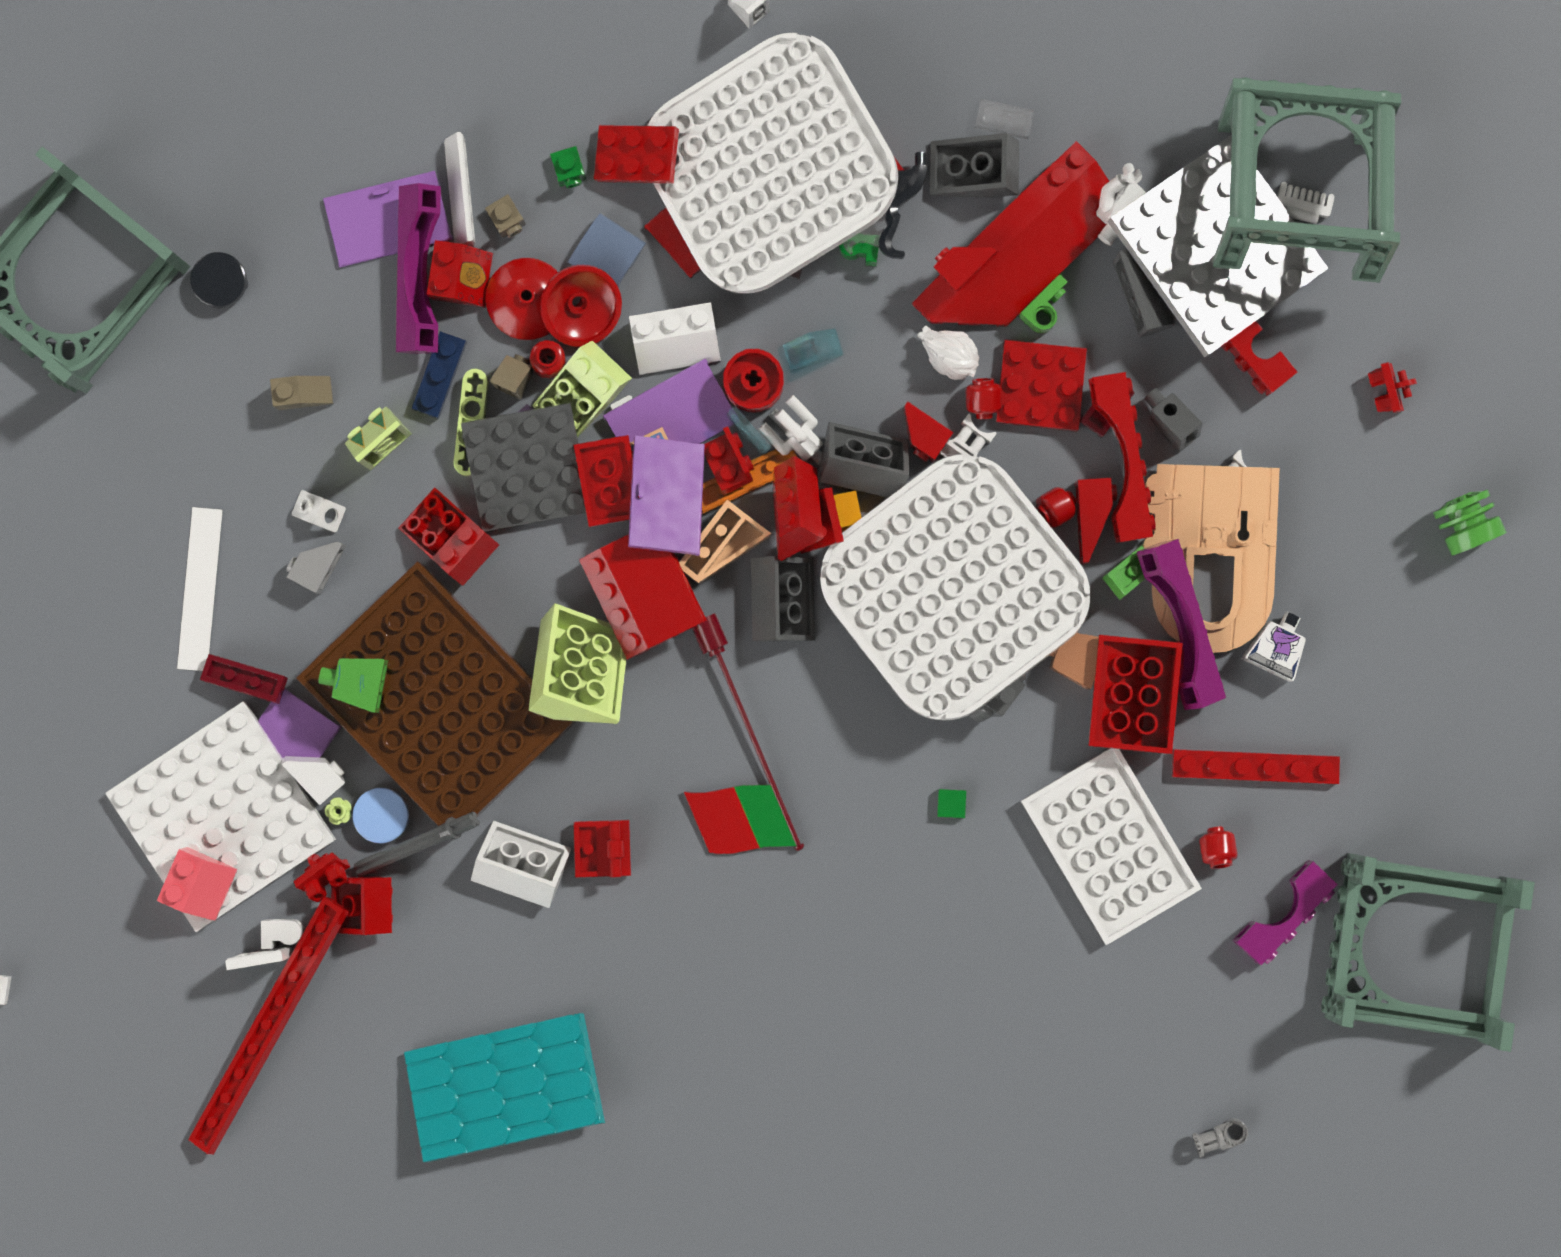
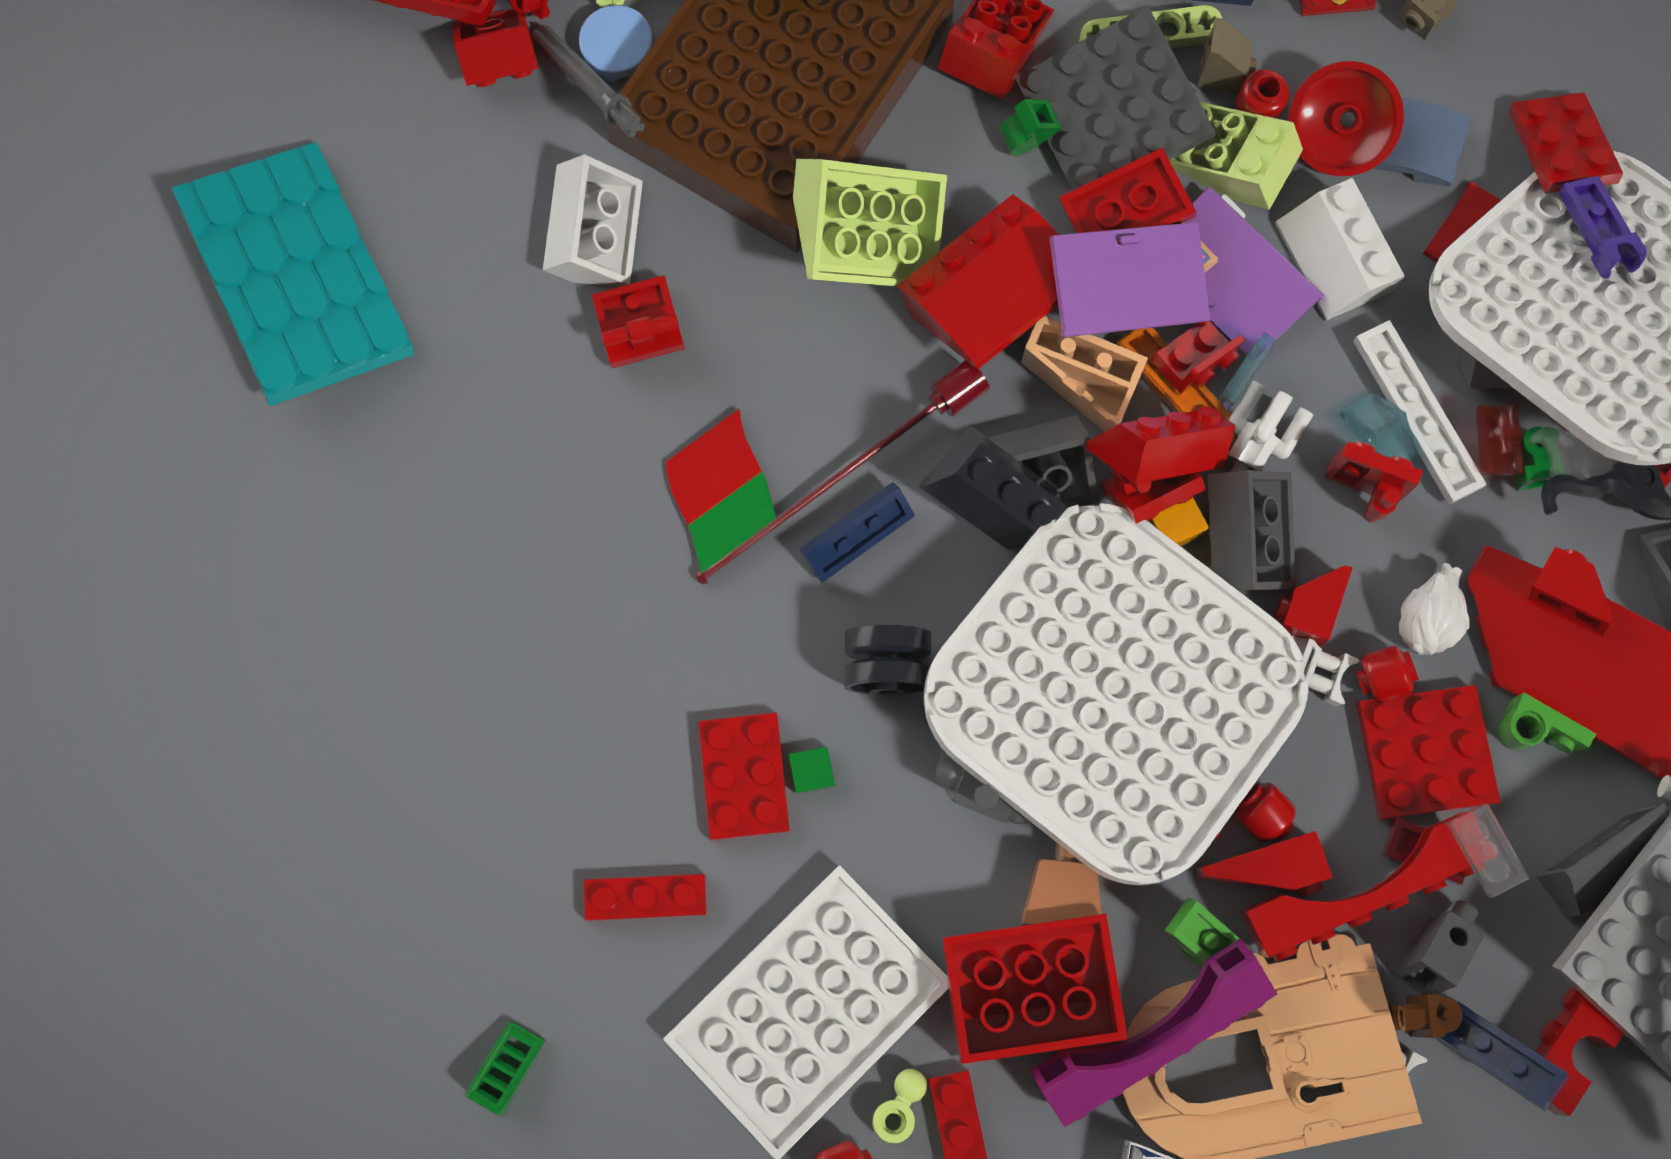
camera: 80 degrees right, 10 degrees down
(504, 302) = (1308, 44): red dish -> none
(527, 538) = (1024, 131): none -> green leg
(568, 167) = (1516, 69): green bracket -> none
(711, 156) = (1602, 226): none -> dark purple plate
(748, 365) = (1315, 360): red wheel -> none
(795, 630) = (993, 490): none -> black slope
(795, 731) = (857, 532): none -> dark blue plate
(806, 318) = (1430, 428): none -> white plate
(842, 271) = (1499, 440): none -> clear red hips
(852, 357) = (1381, 477): none -> red plate
(894, 734) = (887, 659): none -> black wheel
(944, 850) = (743, 776): none -> red plate
(1009, 935) = (645, 897): none -> red plate
(1116, 1070) = (484, 1075): none -> green slope
(1122, 376) = (1488, 850): none -> clear plate
(1175, 791) = (910, 1087): none -> yellowish green plate
(1213, 443) = (1427, 1015): none -> reddish brown hips
(1250, 403) = (1506, 1059): none -> dark blue plate

